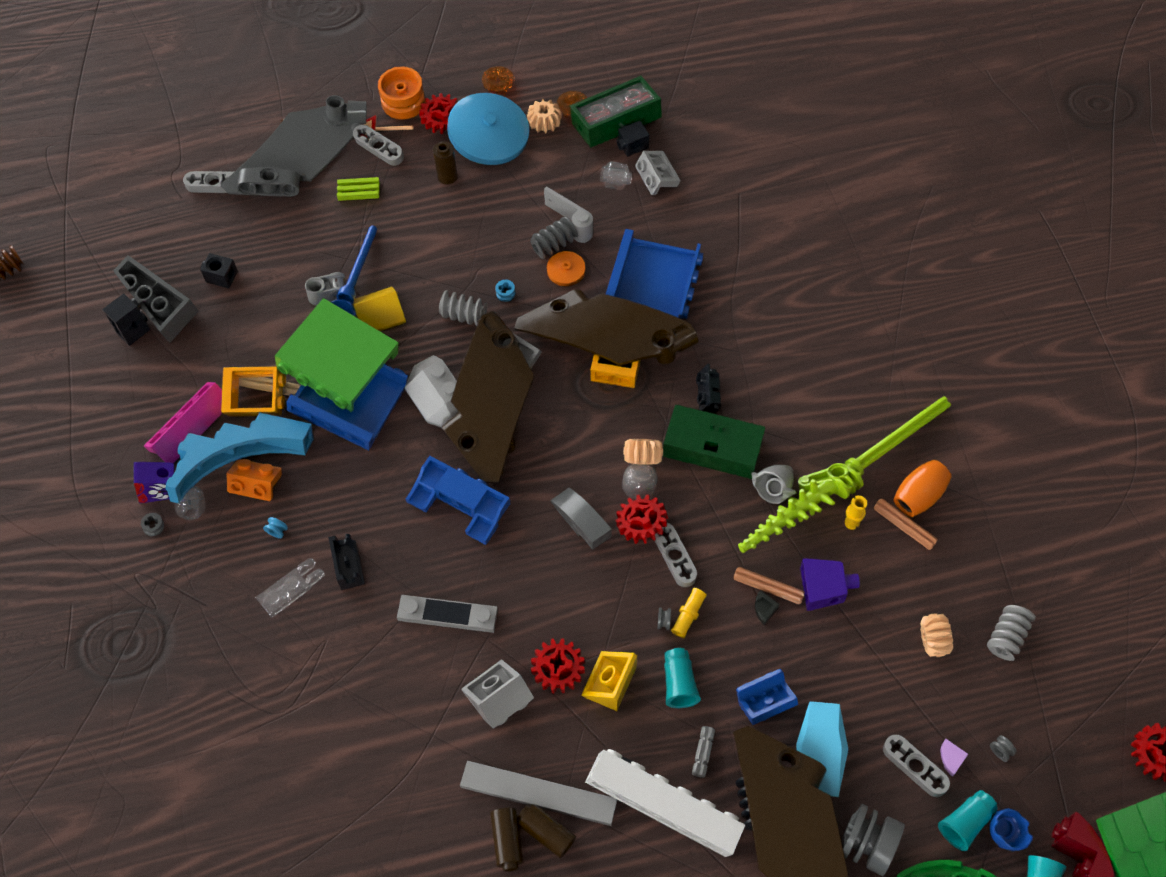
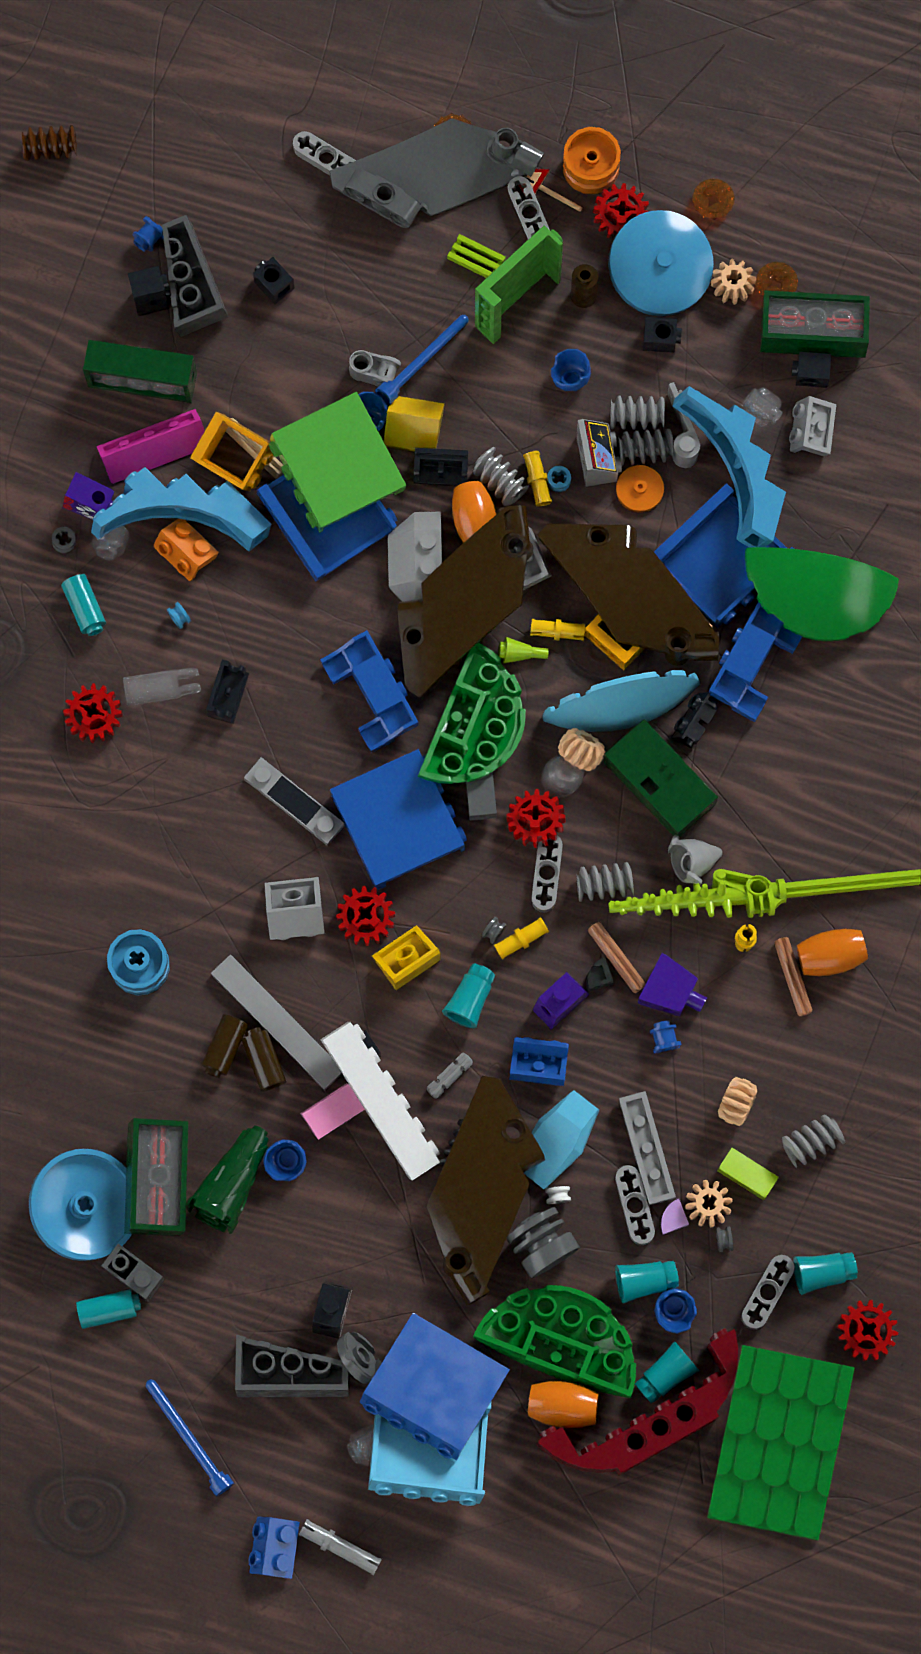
camera: 30 degrees right, 15 degrees up
(108, 287) = (148, 235): none -> blue brick
(148, 374) = (140, 371): none -> dark green brick
(193, 560) = (84, 605): none -> teal brick
(240, 629) = (89, 723): none -> red gear
(394, 172) = (515, 277): none -> bright green panel
(401, 825) = (136, 946): none -> dark azure wheel
(415, 324) = (440, 466): none -> black hinge
(454, 337) = (471, 508): none -> orange piece
(469, 218) = (571, 370): none -> blue hair
(490, 297) = (537, 478): none -> yellow pin
(516, 169) = (653, 342): none -> black brick
(521, 258) = (597, 452): none -> slope
(533, 219) = (637, 412): none -> light grey piece
(536, 579) = (397, 819): none -> blue panel
(547, 415) = (513, 650): none -> lime cone
(553, 476) = (478, 722): none -> green brick
(569, 384) = (557, 629): none -> yellow pin
(606, 197) = (747, 464): none -> dark azure arch
(629, 838) = (332, 1111): none -> bright pink hinge
(648, 403) = (622, 702): none -> medium azure brick
(717, 329) = (745, 660): none -> blue bracket
(722, 533) = (604, 881): none -> light grey piece
(735, 259) = (819, 592): none -> green brick
(750, 638) = (559, 1000): none -> dark purple torso
(847, 621) = (664, 1037): none -> blue brick
(853, 794) = (558, 1195): none -> white bush
(893, 713) = (647, 1148): none -> light grey plate
(962, 729) = (698, 1201): none -> light nougat gear
(981, 688) = (747, 1174): none -> lime slope
(1060, 790) = (771, 1270): none -> light grey beam
(1093, 727) = (823, 1270): none -> teal plant

